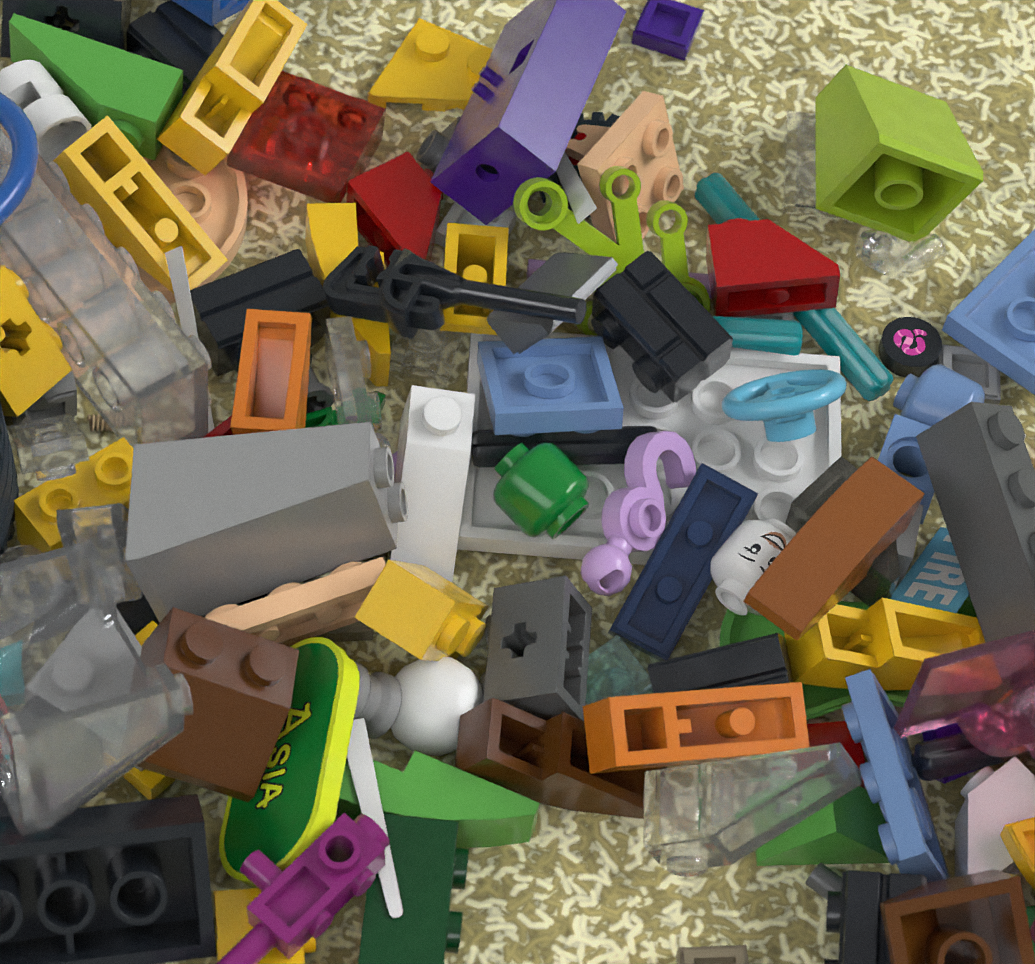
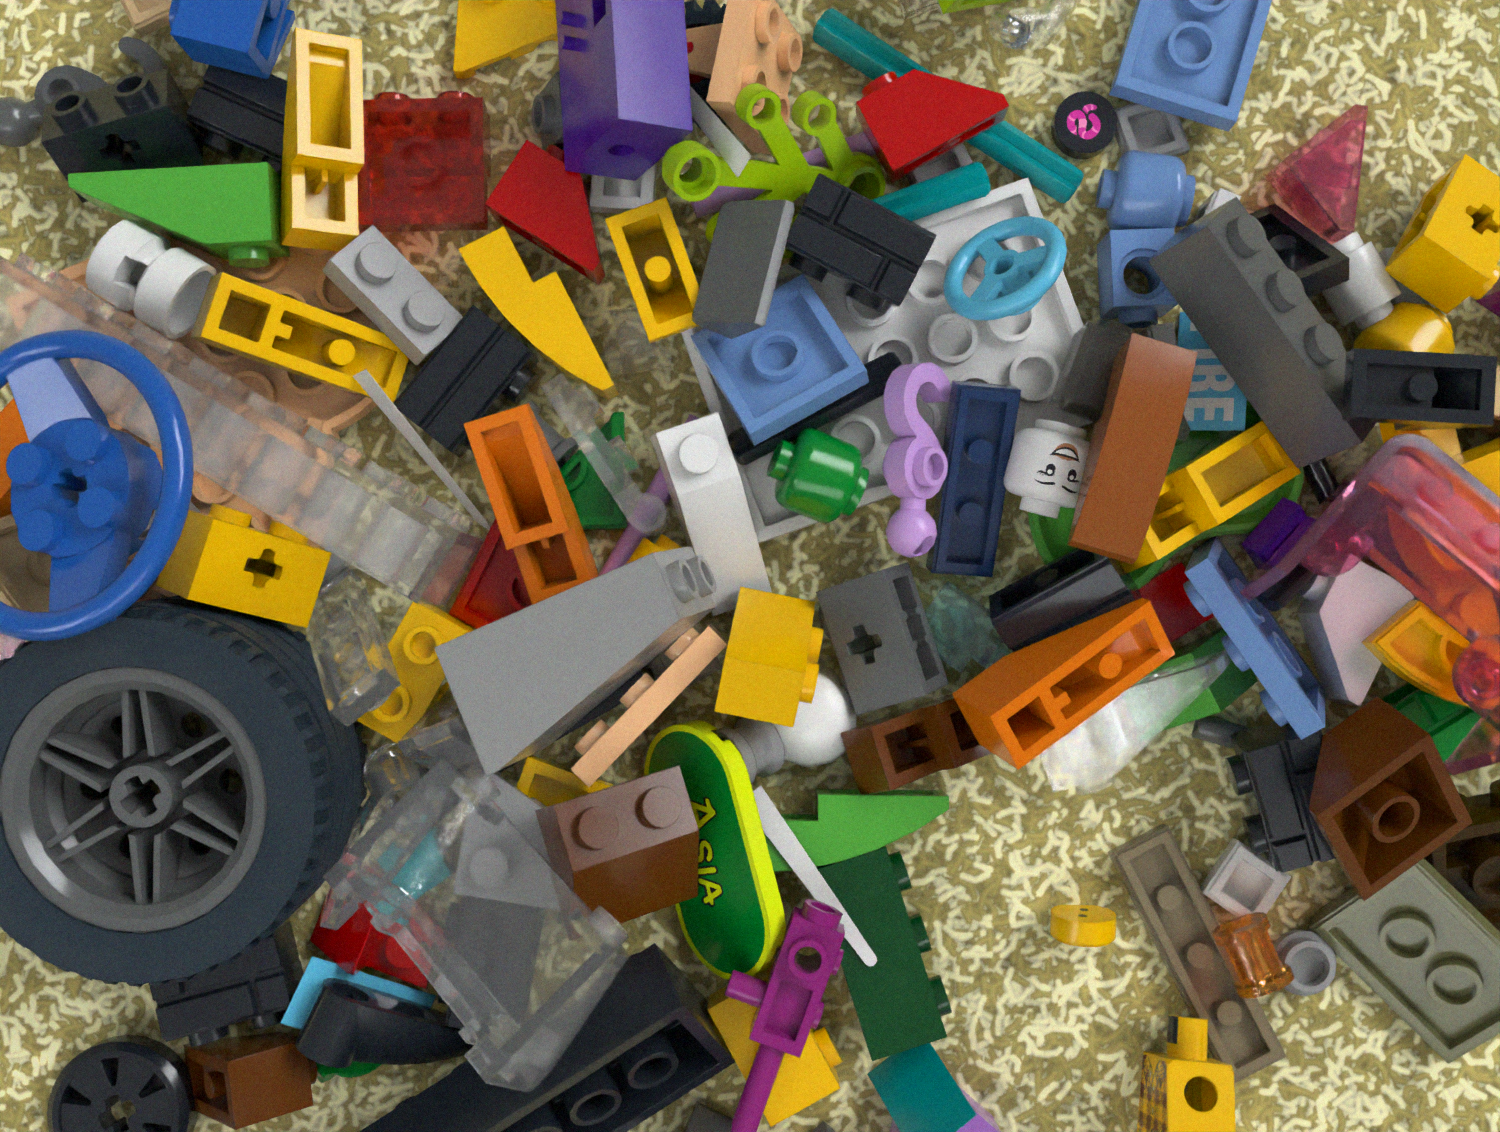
camera: 15 degrees left, 30 degrees up
(231, 211) = (392, 294): none -> light grey plate
(417, 291) = (614, 321): black piece -> none

